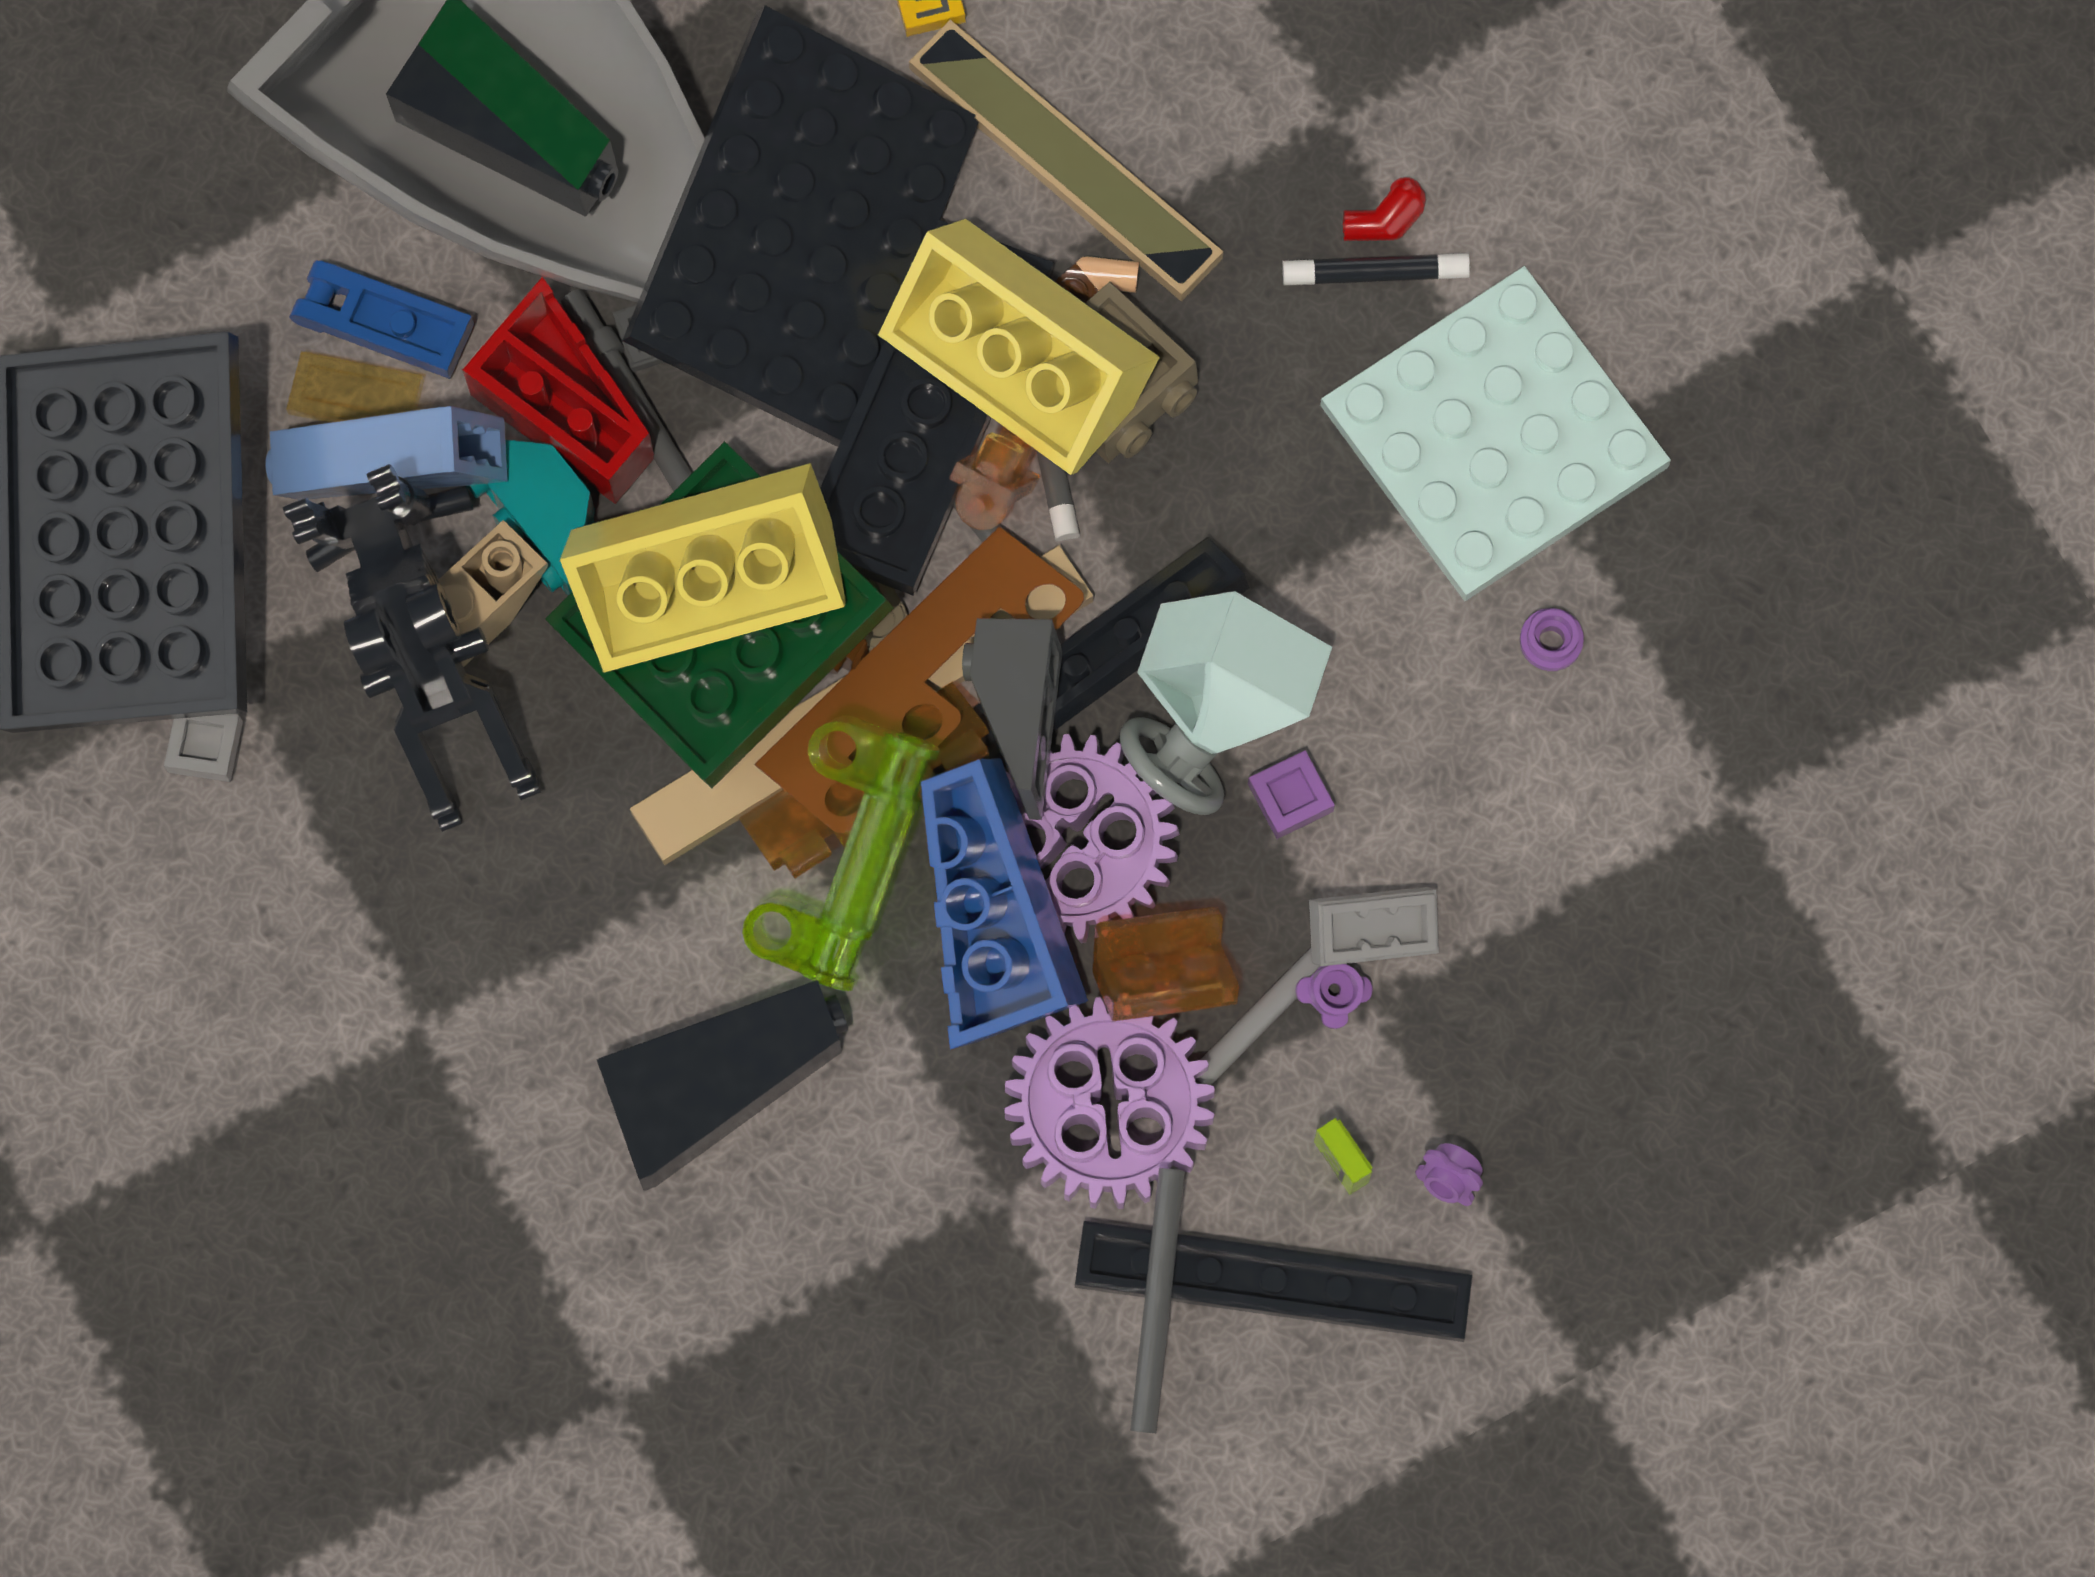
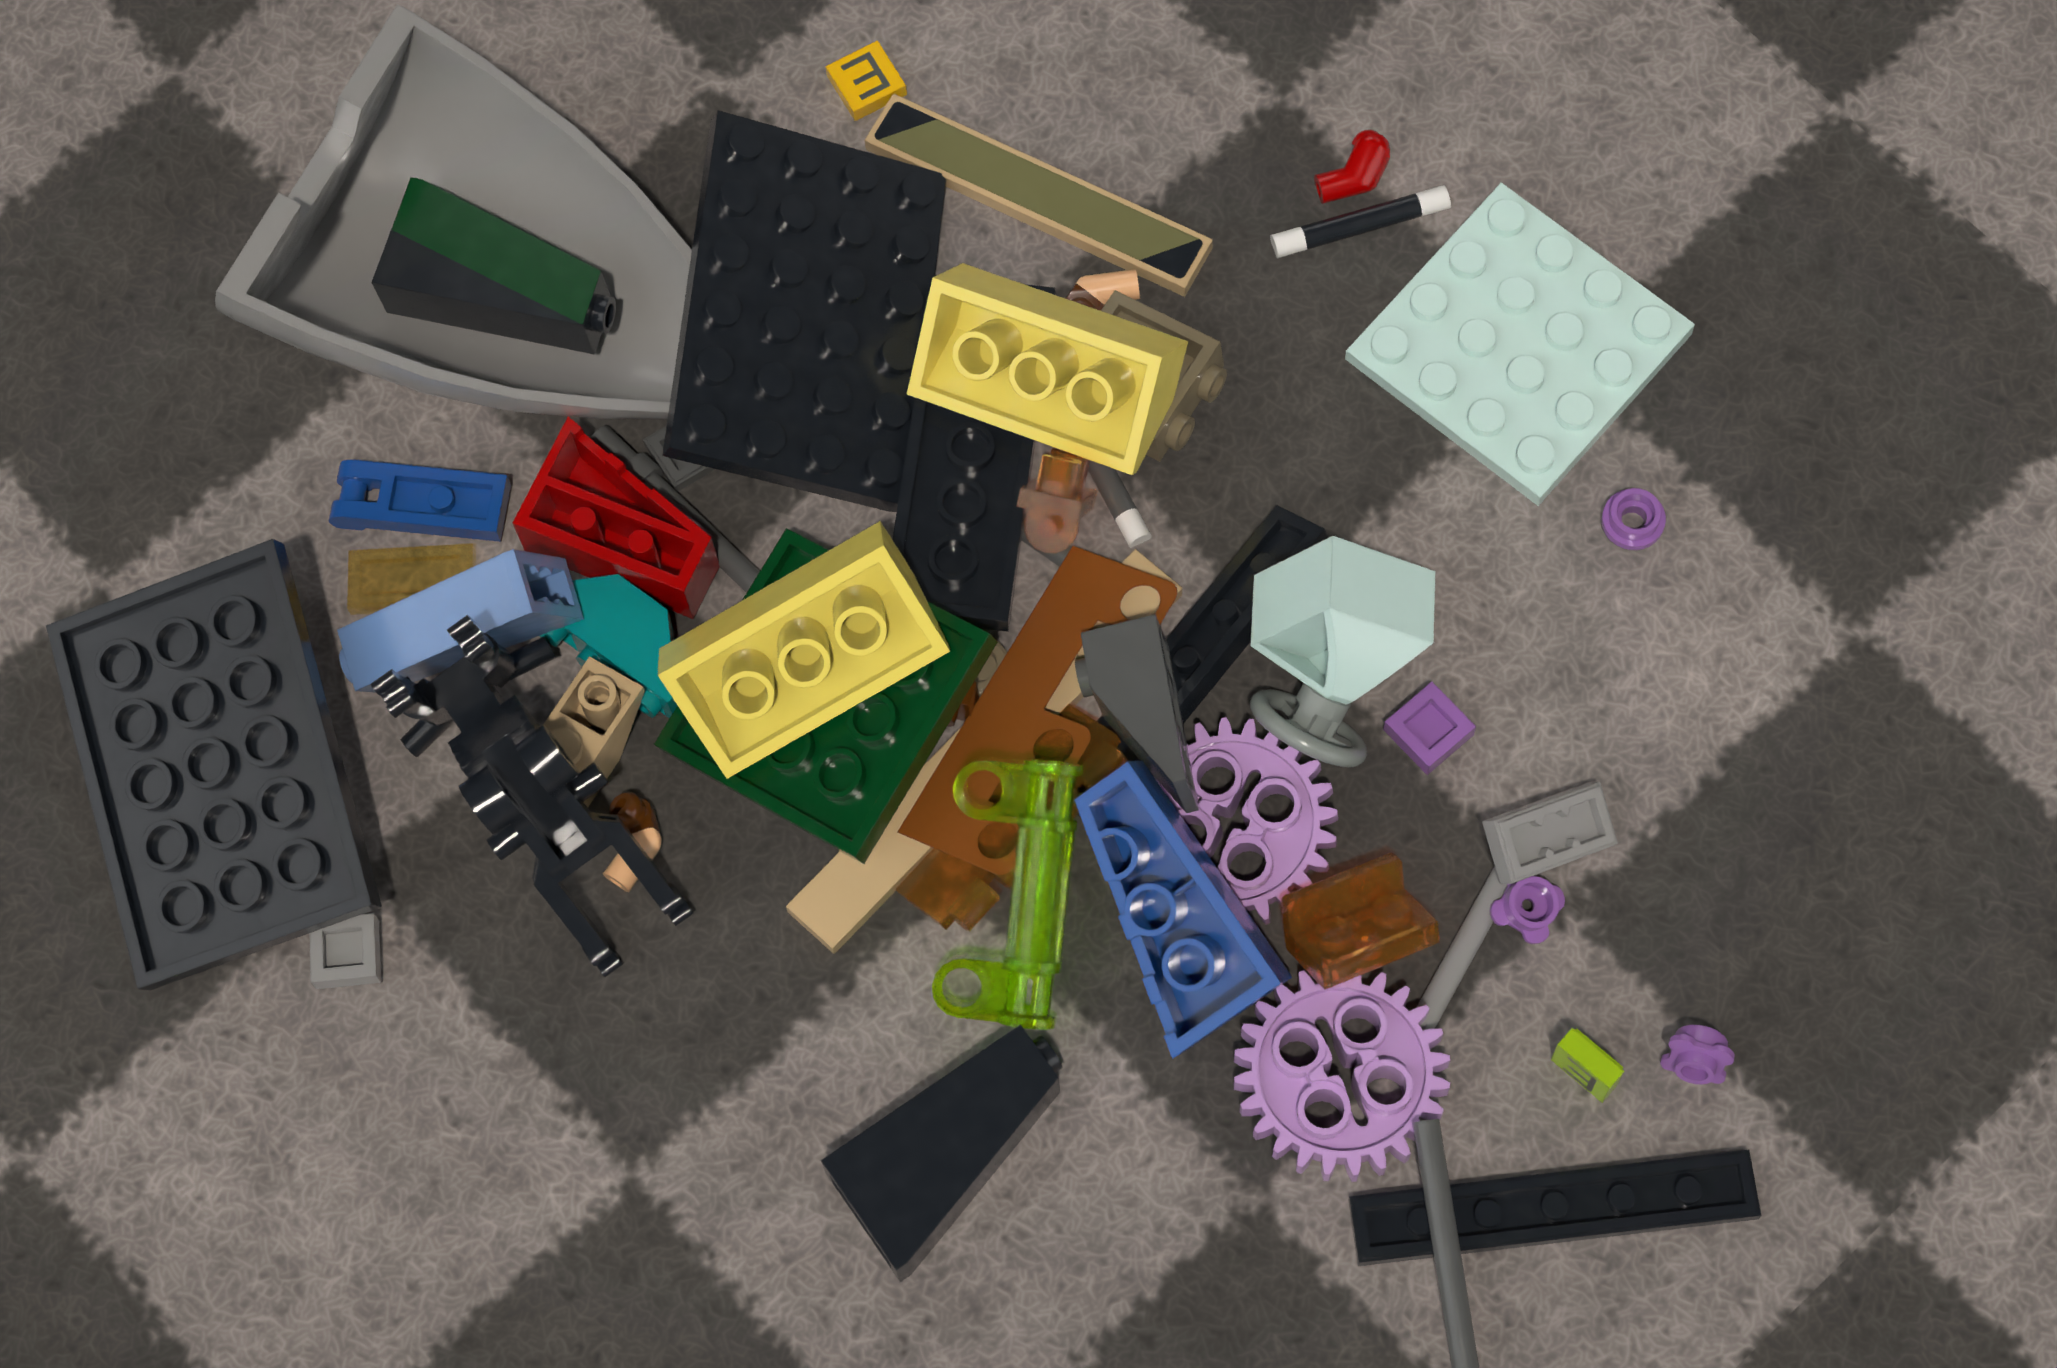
camera: 10 degrees left, 5 degrees down
(513, 693) = (642, 823): none -> arm

